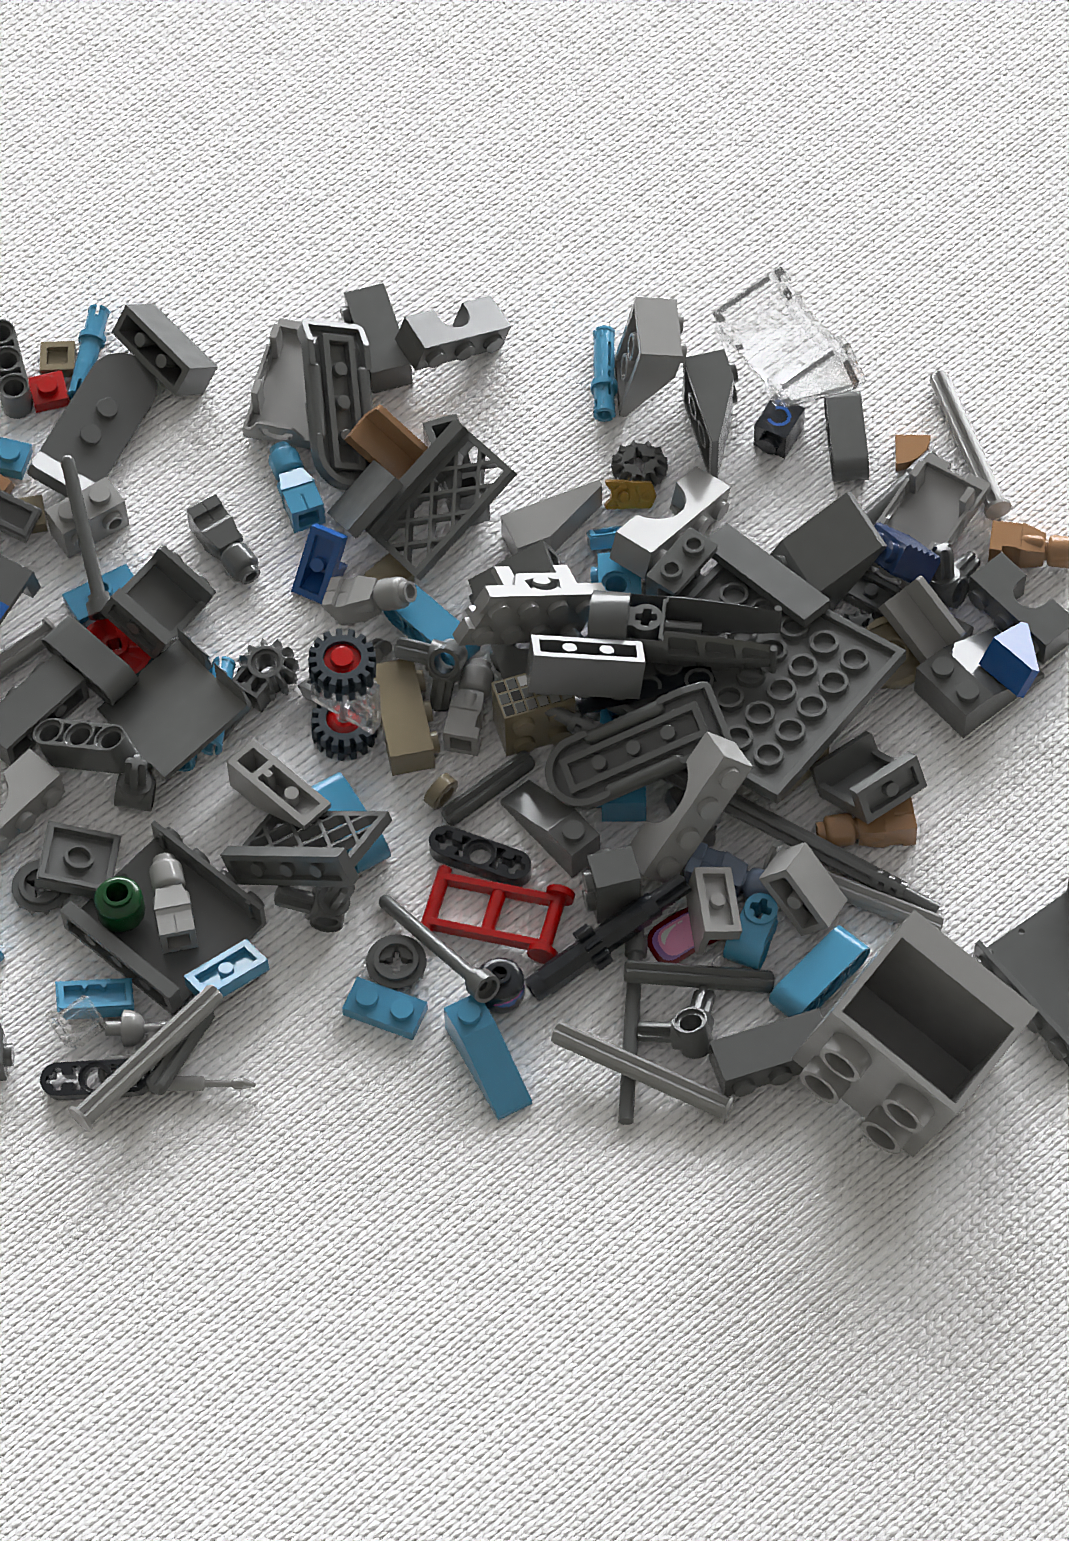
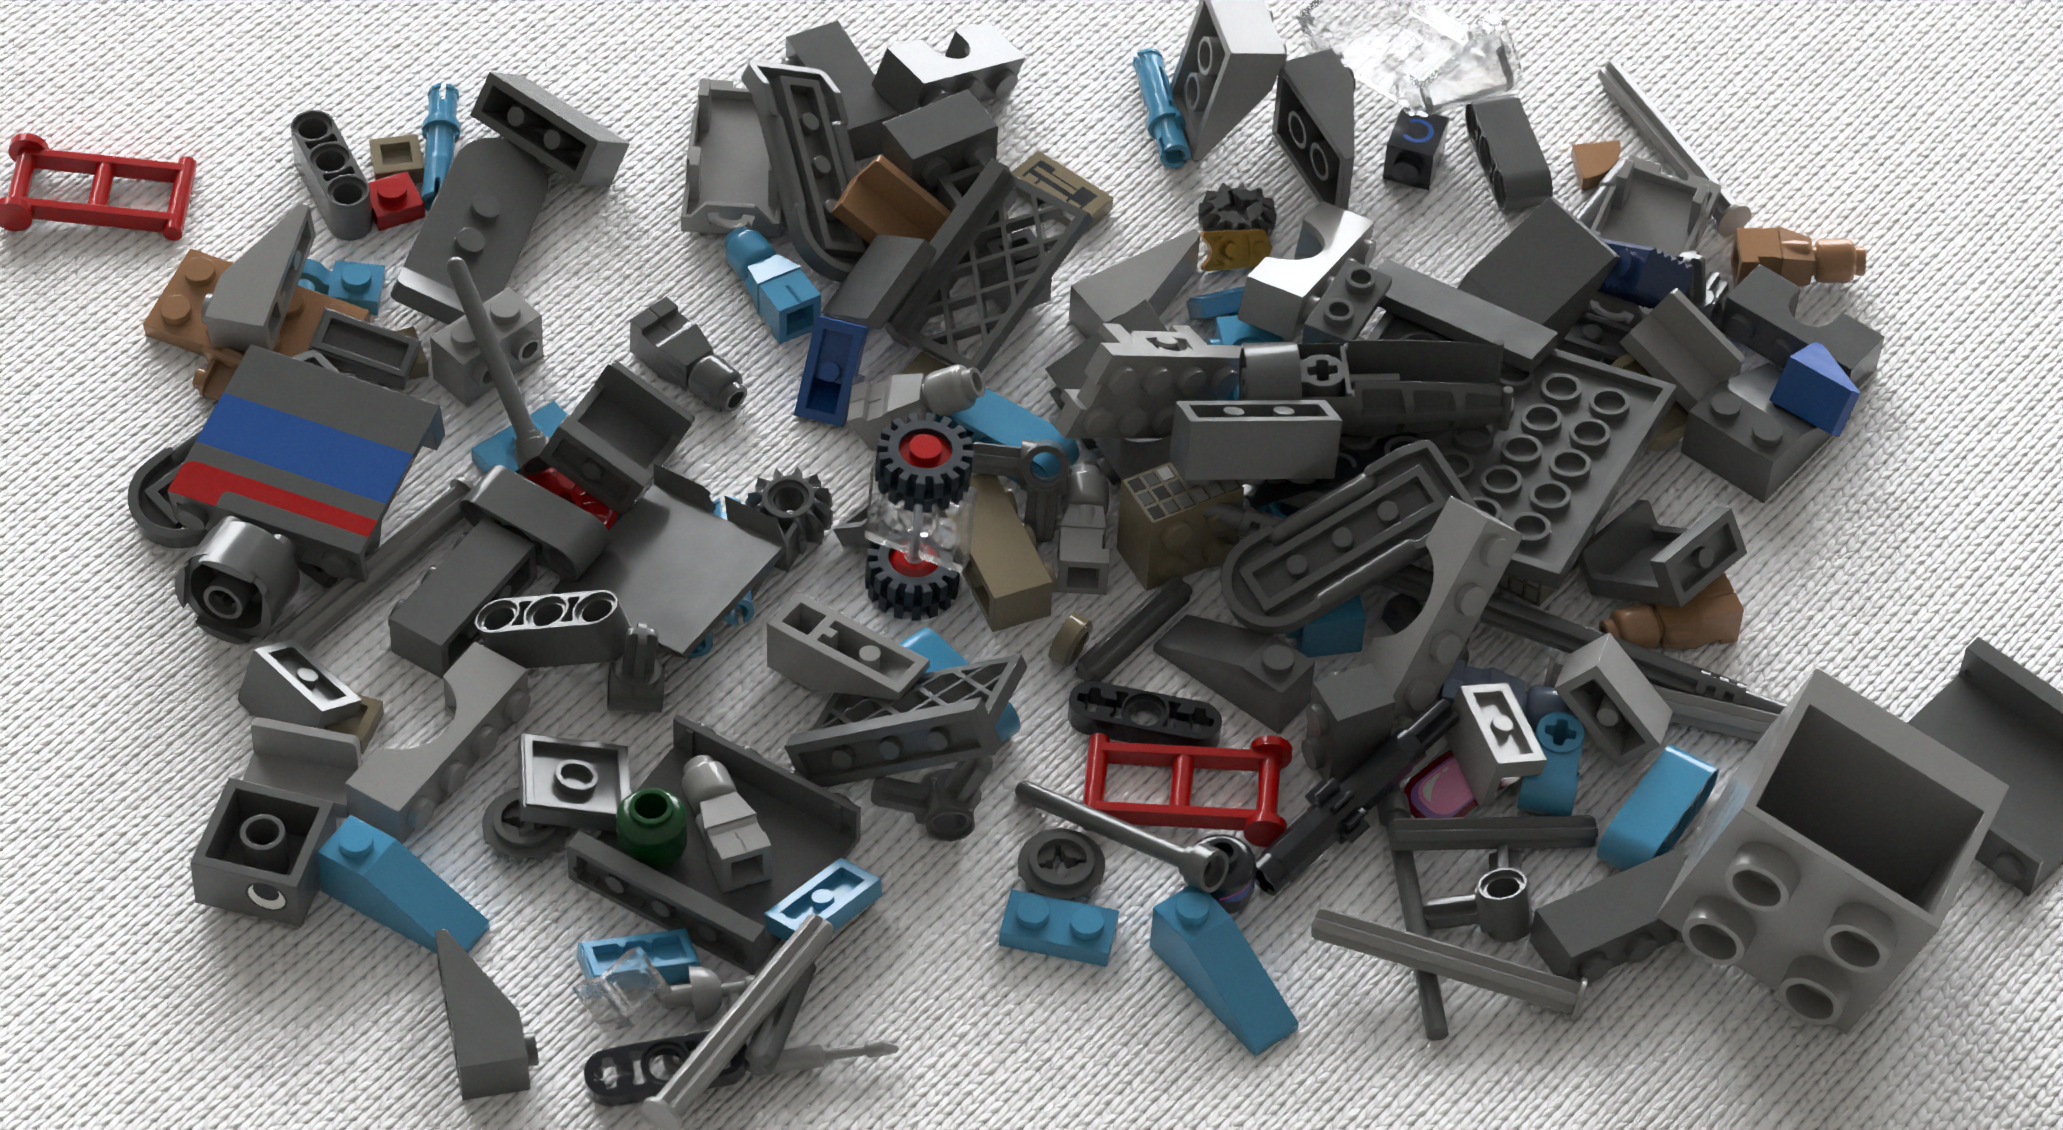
camera: 15 degrees left, 10 degrees down
(429, 395) = (940, 139): none -> dark grey brick
(517, 434) = (1065, 184): none -> dark tan tile

